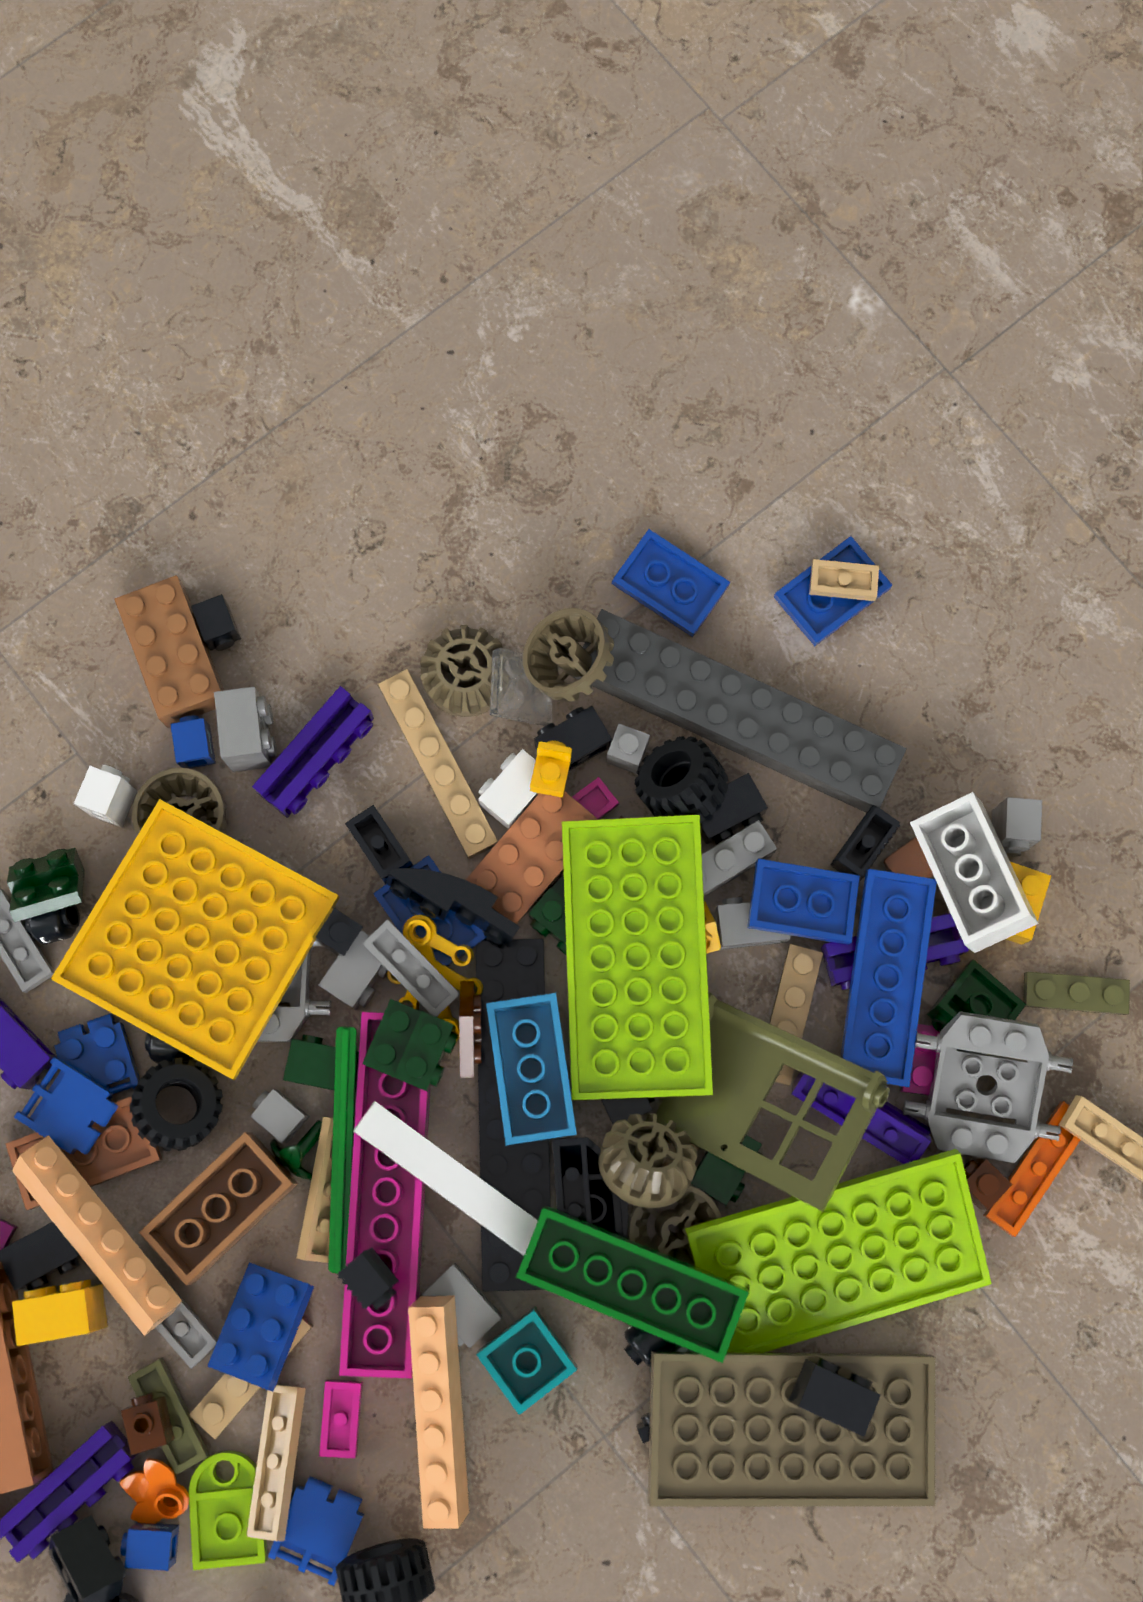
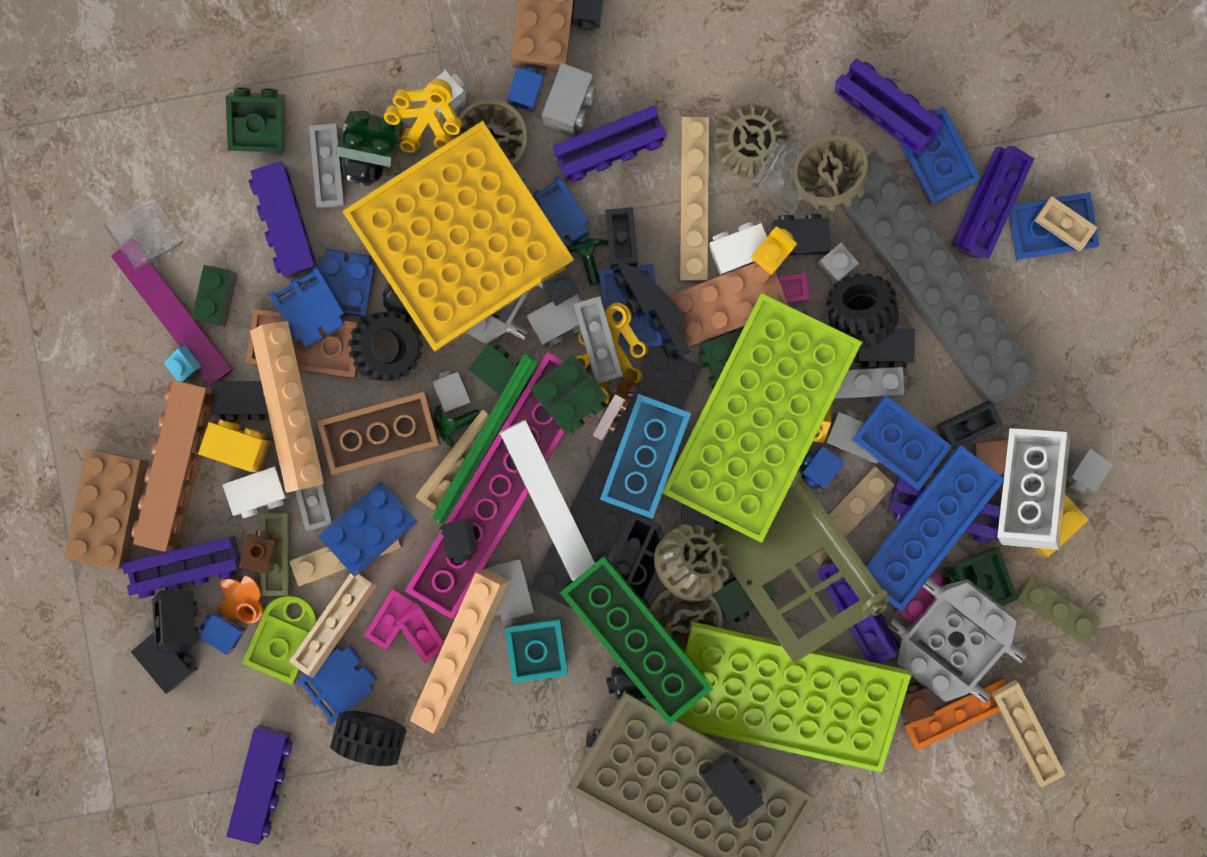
camera: 30 degrees right, 10 degrees up
(92, 794) = (437, 94): none -> yellow plant
(110, 1354) = (256, 491): none -> white brick
(301, 852) = (562, 212): none -> blue plate
(347, 879) = (586, 250): none -> dark green plant
(382, 1415) = (420, 632): none -> dark pink plate
(591, 558) = (889, 107): none -> dark purple brick
(732, 977) = (820, 467): none -> blue brick
(755, 598) = (992, 202): none -> dark purple brick

